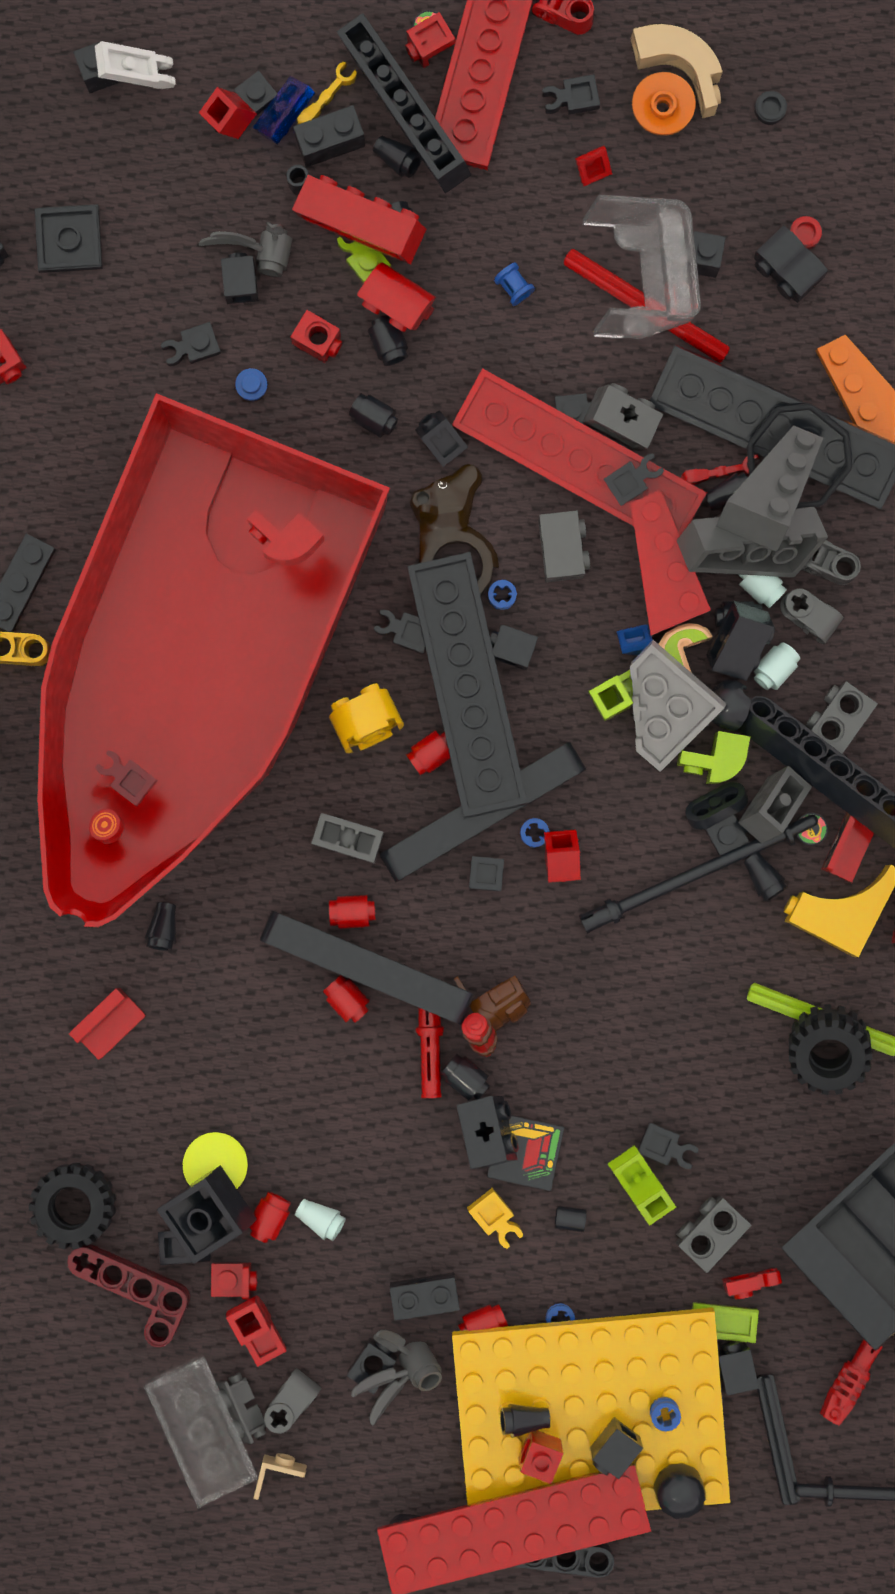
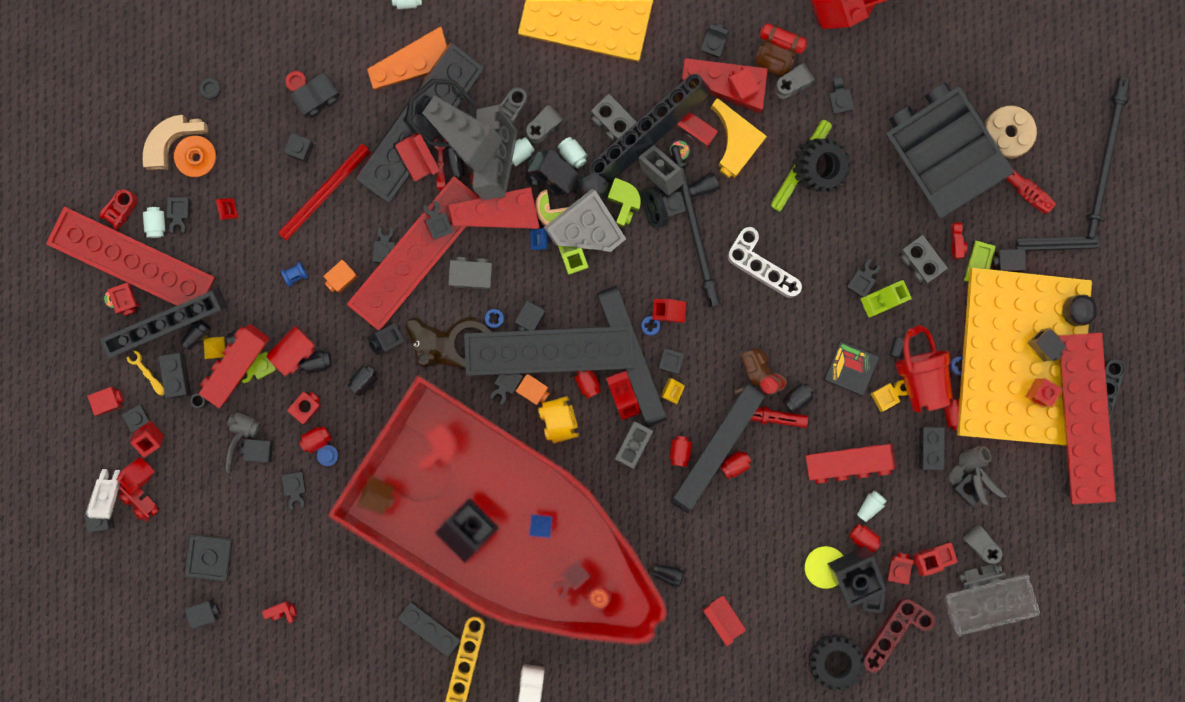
camera: 80 degrees left, 0 degrees up
(125, 127) = (142, 508): none -> red hinge
(170, 106) = (135, 475): none -> red brick
(172, 607) = (466, 530): none -> black slope
(197, 458) = (376, 496): none -> reddish brown brick
(199, 717) = (540, 526): none -> blue slope
(271, 361) = (315, 439): none -> red brick
(273, 43) = (106, 401): none -> brick
(280, 1463) = (1020, 558): tan bracket -> none
(284, 110) = (151, 402): clear blue plate -> none
(380, 1175) = (851, 462): none -> wedge
(383, 186) = (214, 347): none -> yellow slope
(404, 672) = (533, 390): none -> orange brick
(420, 809) = (623, 395): none -> red brick
(441, 884) = (672, 391): none -> yellow slope
(475, 1120) = (825, 392): black brick -> none
(521, 1419) = (1019, 400): black cone -> none
(522, 352) = (340, 277): none -> orange brick
(536, 1267) = (926, 374): none -> red piece
(552, 62) = (154, 222): none -> light aqua brick
(606, 416) = (390, 230): dark grey brick -> none
(655, 1412) = (1033, 304): blue bush -> none
(657, 993) = (766, 266): none -> white beam
(668, 263) = (300, 173): clear windscreen -> none
(725, 431) = (416, 157): none -> red panel

